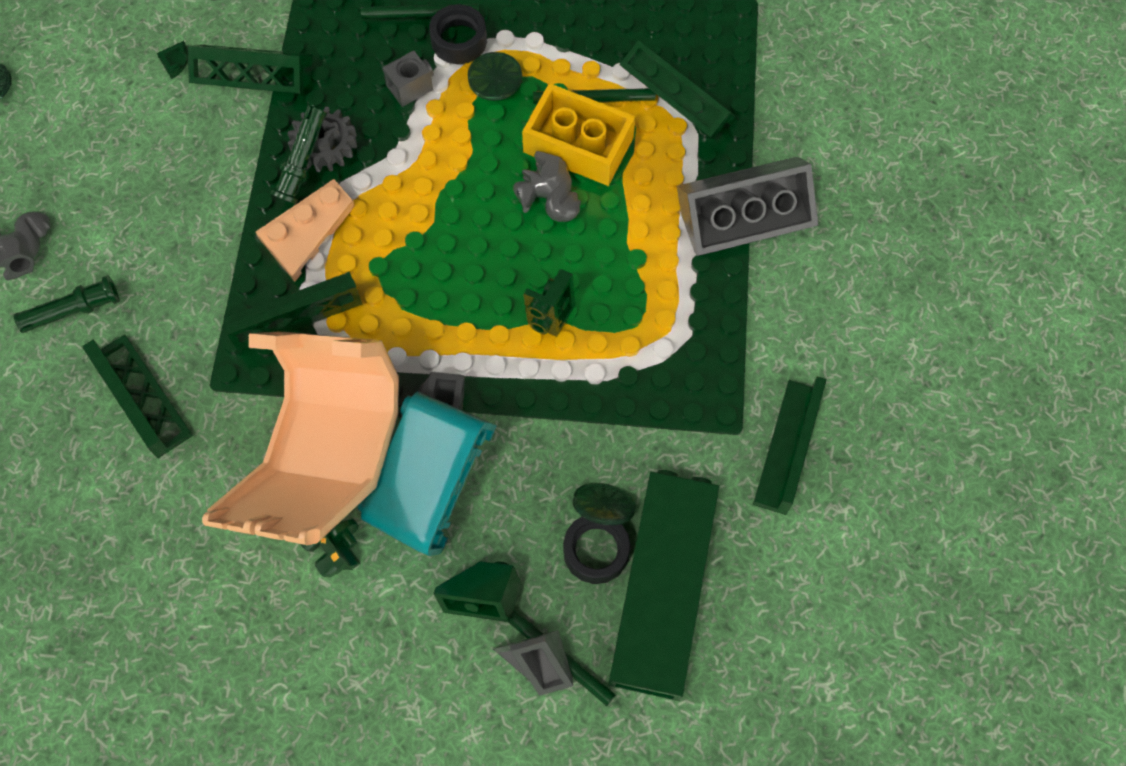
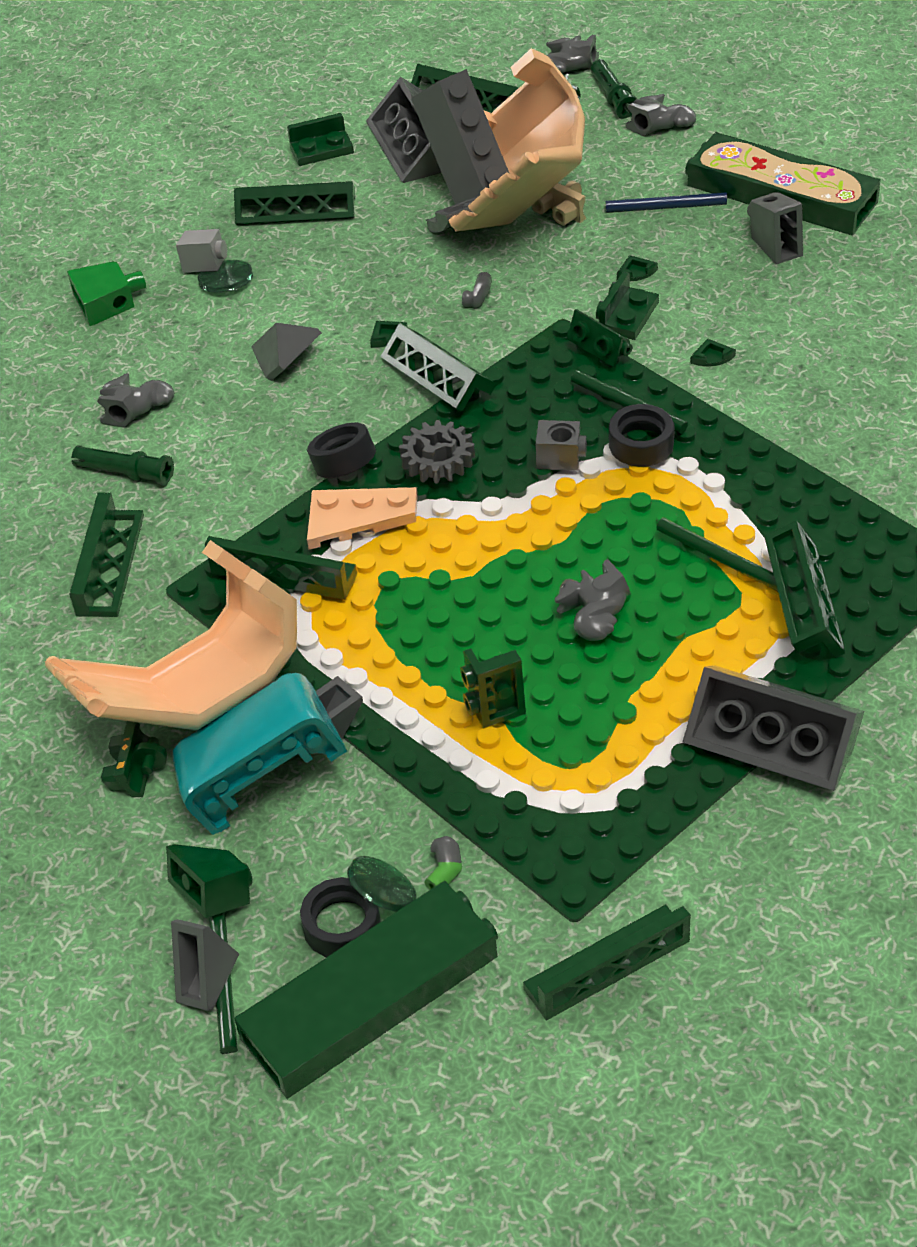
camera: 45 degrees right, 20 degrees down
(105, 124) = (281, 346): none -> dark grey slope
(232, 172) = (341, 450): none -> black tyre
(294, 169) = (387, 458): dark green pin -> none
(494, 76) = (642, 487): clear green wheel -> none
(580, 132) = (665, 570): yellow brick -> none
(623, 449) = (448, 860): none -> arm

